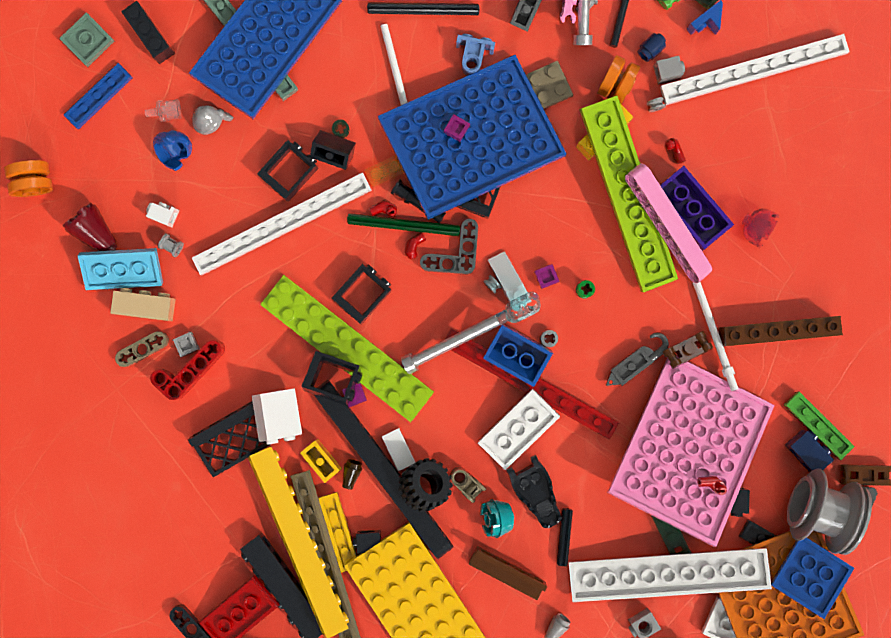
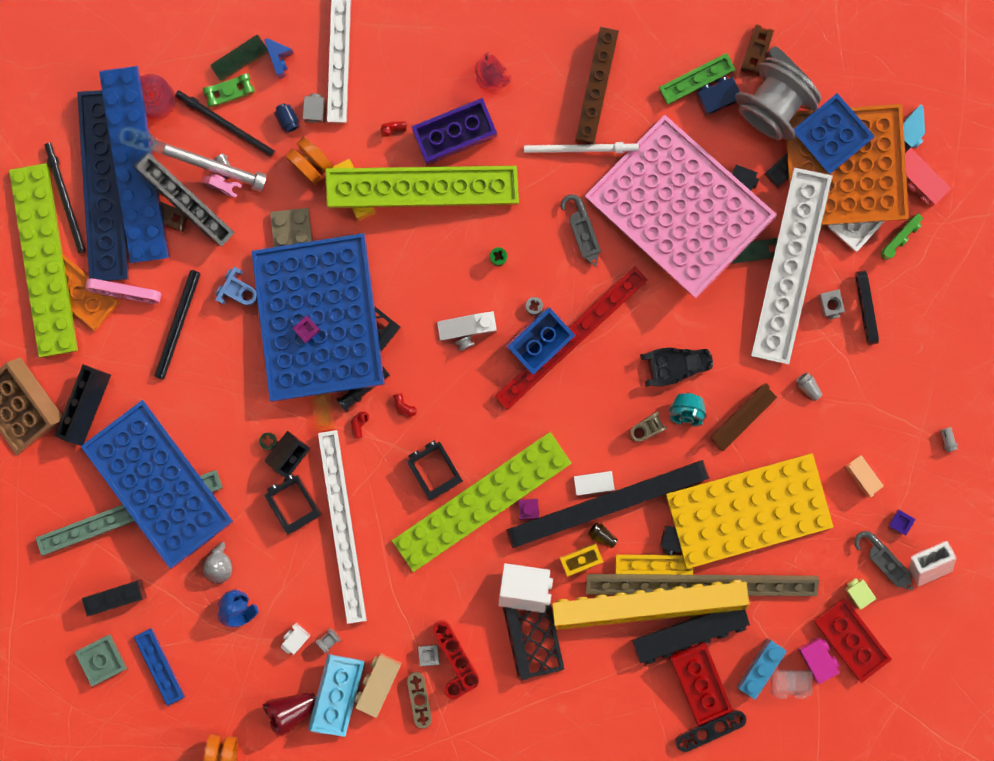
camera: 80 degrees left, 0 degrees up
(165, 110) = (195, 605): clear piece -> none
(313, 372) = (492, 515): black window -> none
(393, 63) = (223, 370): white bar -> none
(401, 224) = (380, 410): dark green axle -> none
(412, 362) = (514, 444): flat silver piece -> none
(437, 478) = (635, 454): black tyre -> none
(457, 260) = (431, 370): dark grey beam -> none
(518, 429) = (610, 362): white plate -> none
(546, 276) = (474, 289): magenta plate -> none
(564, 537) = (726, 352): black axle -> none
(656, 104) = (343, 132): light grey bush -> none
(668, 223) = (461, 158): bright pink beam -> none
(687, 350) = (586, 179): reddish brown plate -> none
(714, 483) = (718, 196): red arm -> none

